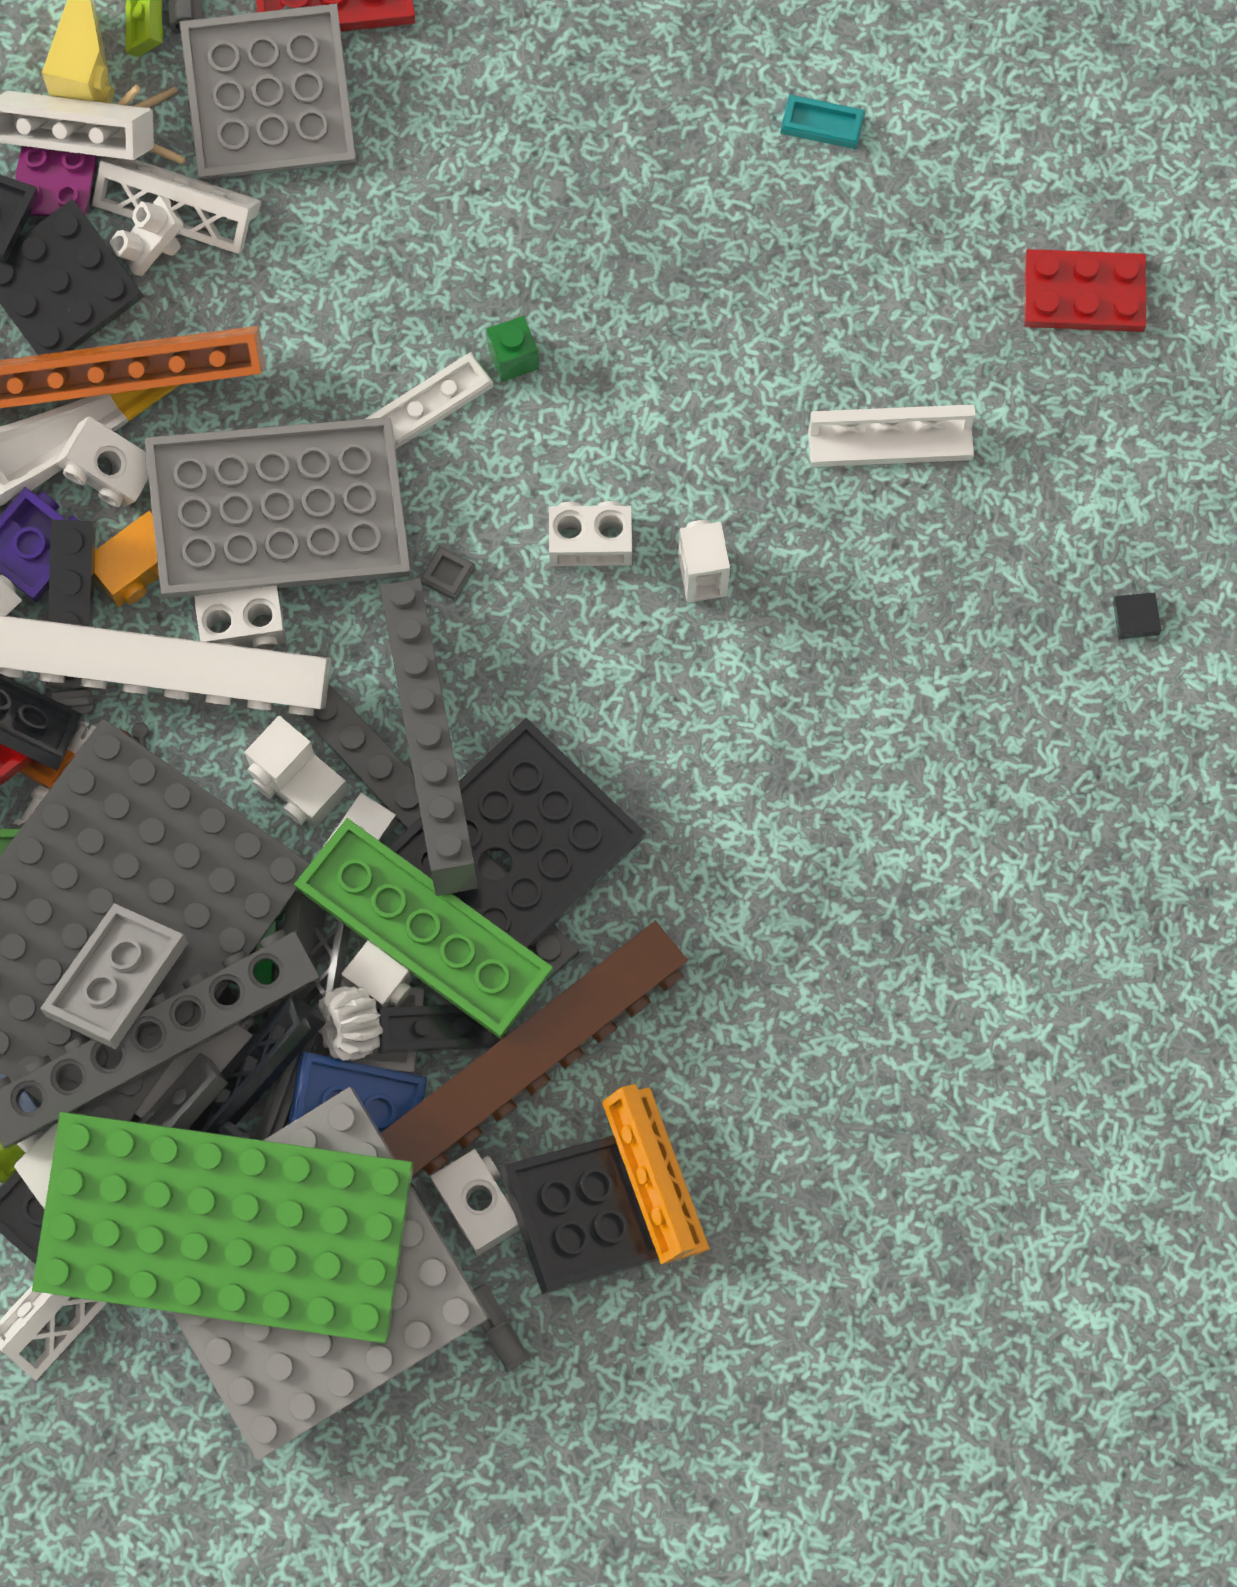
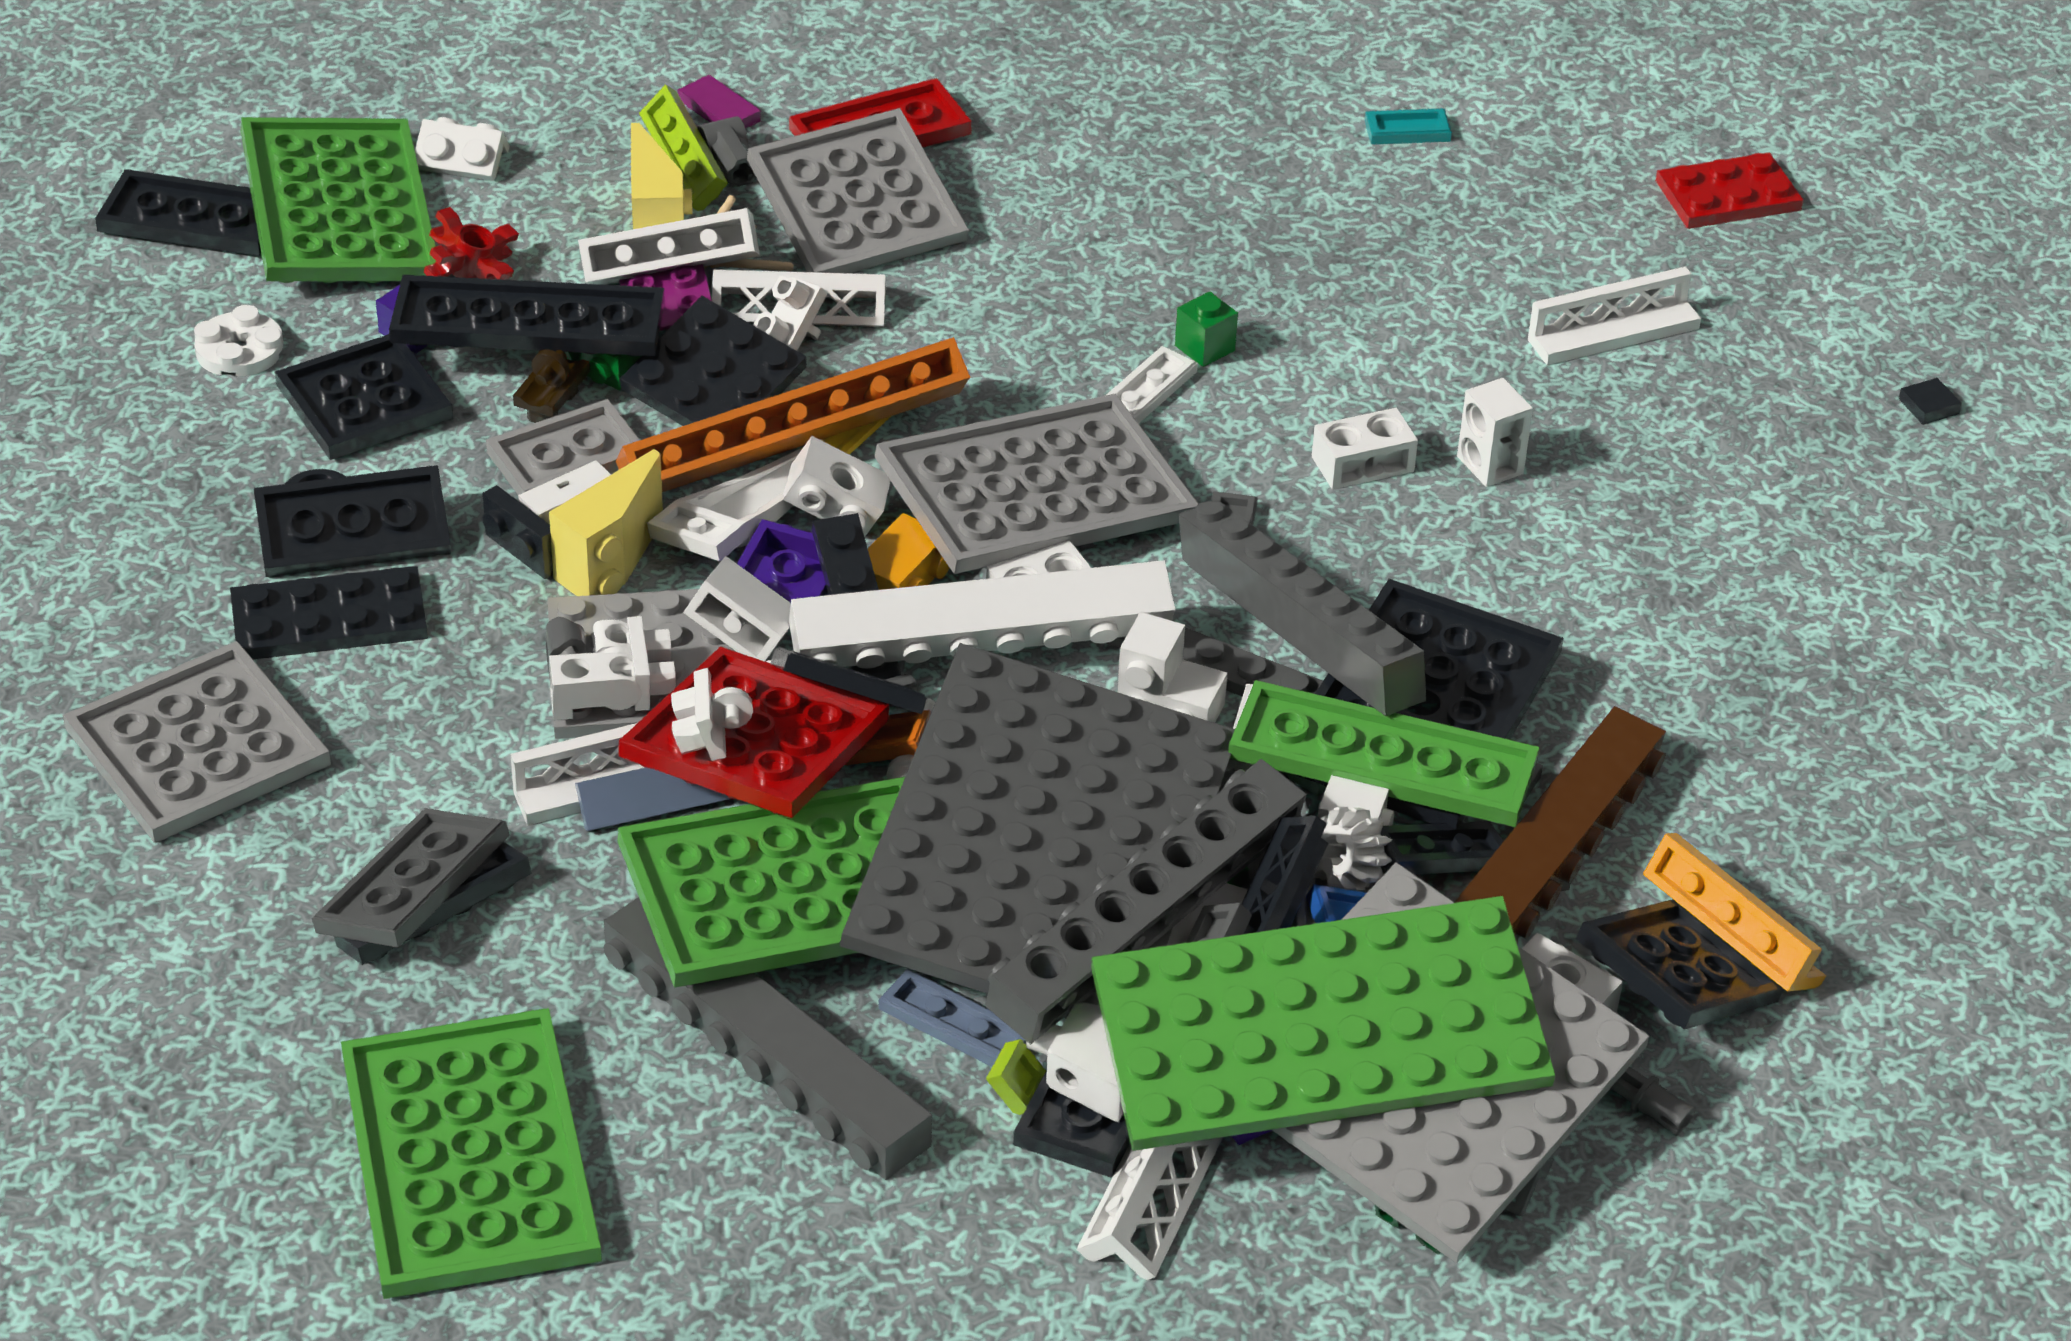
camera: 20 degrees left, 30 degrees down
(114, 976) = (1088, 836): light grey plate -> none

